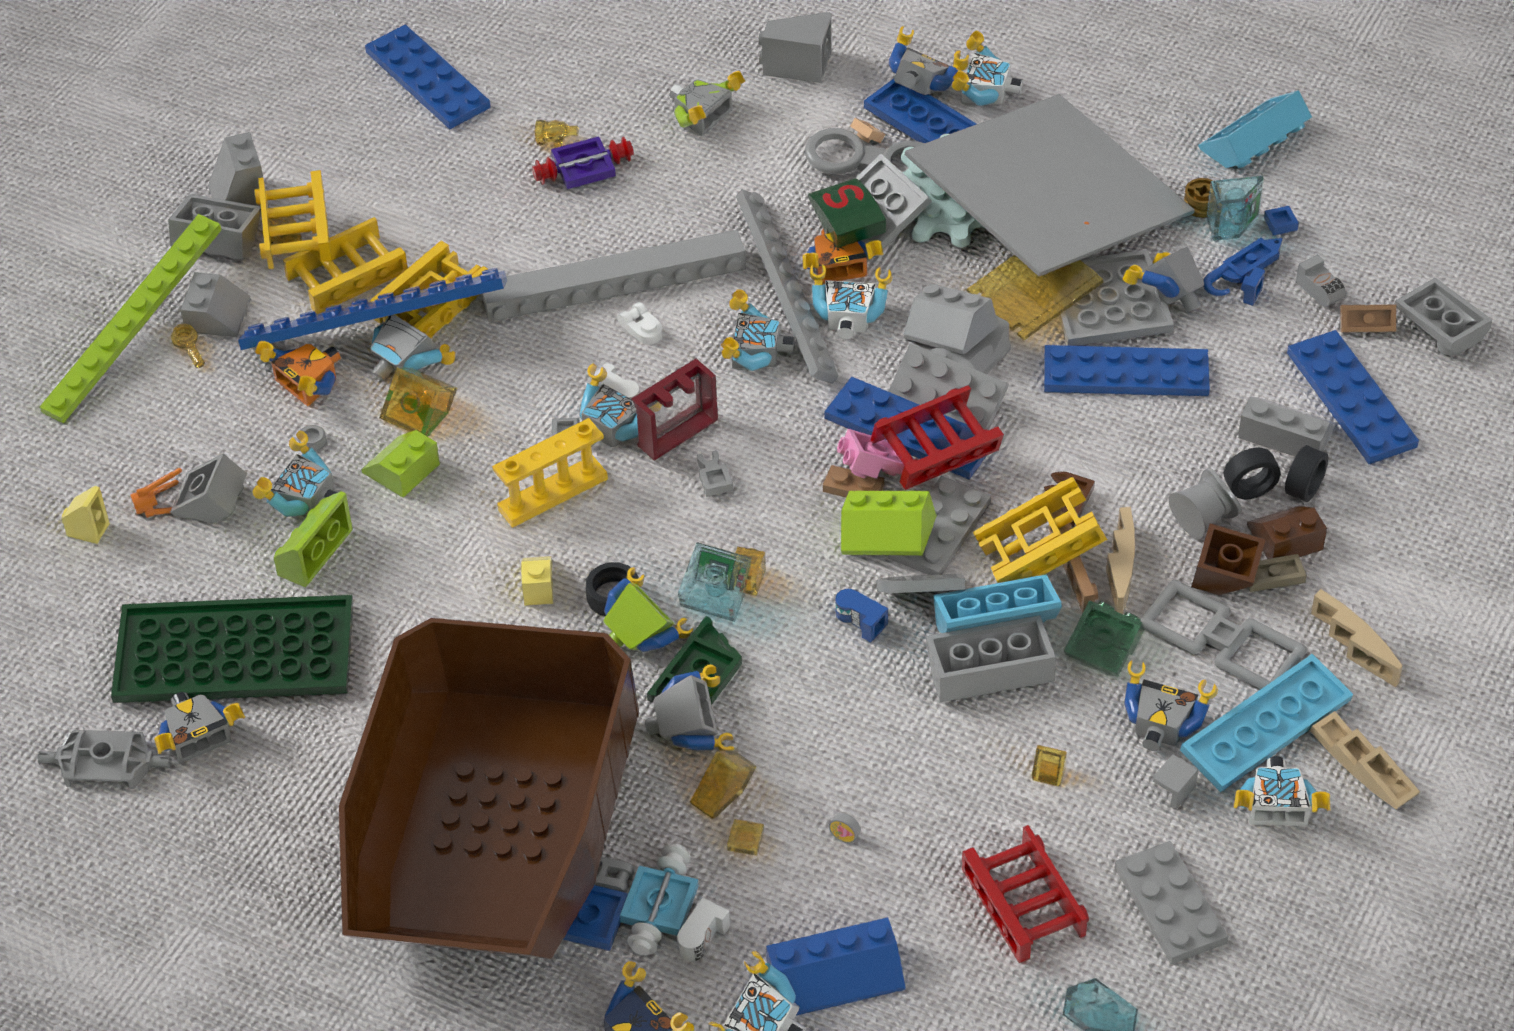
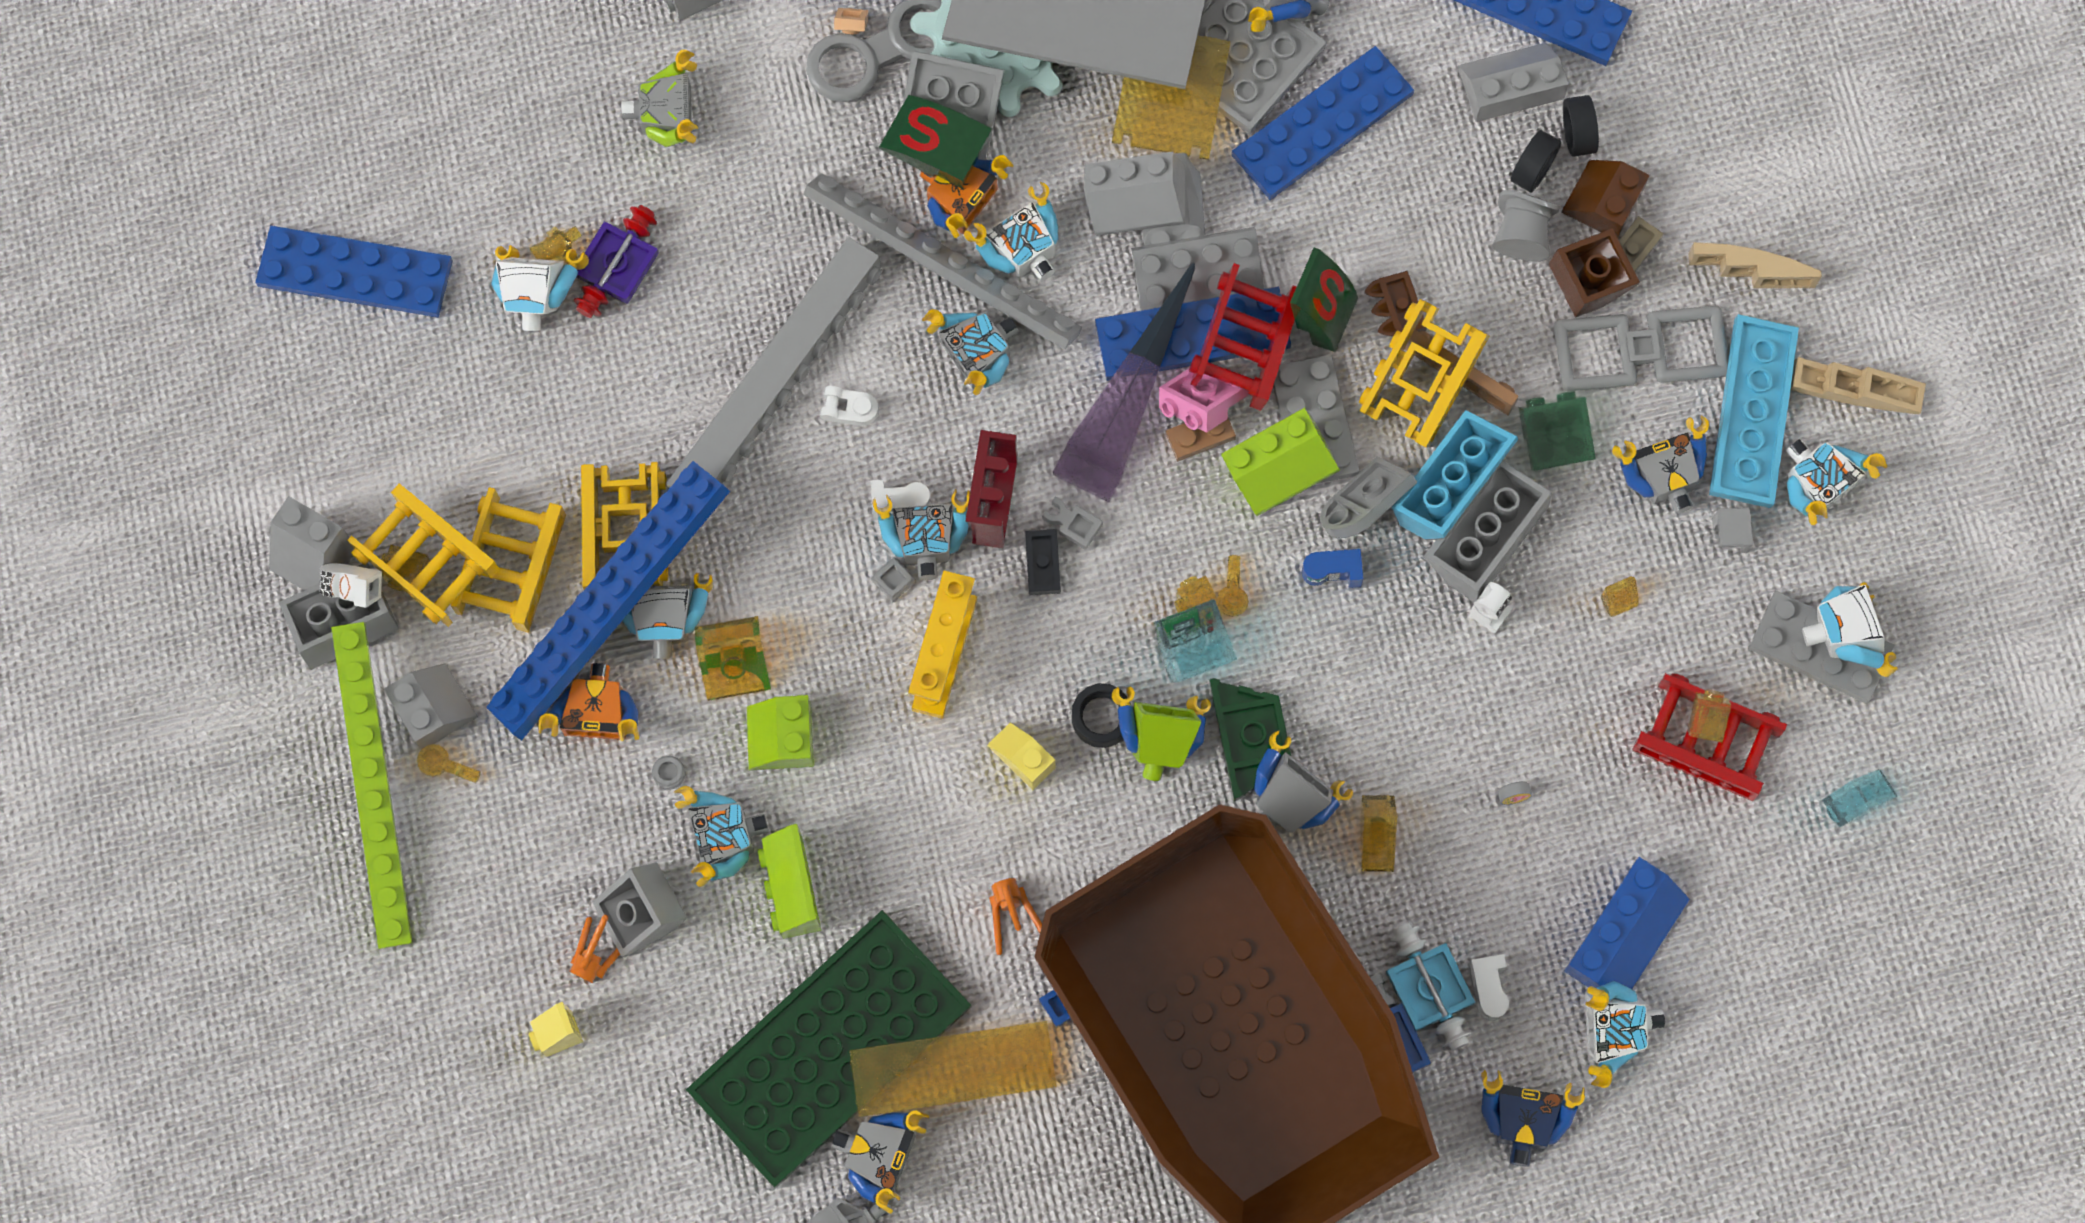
camera: 40 degrees left, 25 degrees up
(234, 200) = (351, 583): none -> white leg
(289, 710) = (952, 1068): none -> clear yellow plate
(519, 136) = (533, 284): none -> torso
(669, 482) = (1042, 562): none -> black plate
(745, 837) = (1443, 868): clear yellow plate -> none
(773, 586) = (1233, 598): none -> clear yellow plate
(787, 441) = (1104, 439): none -> clear purple plate
(945, 705) = (1492, 607): none -> white leg
(1010, 448) = (1323, 301): none -> dark green slope
(1030, 865) = (1709, 715): none -> clear yellow brick
(1121, 561) = (1507, 346): tan slope -> none
(1197, 889) = (1851, 629): none -> torso

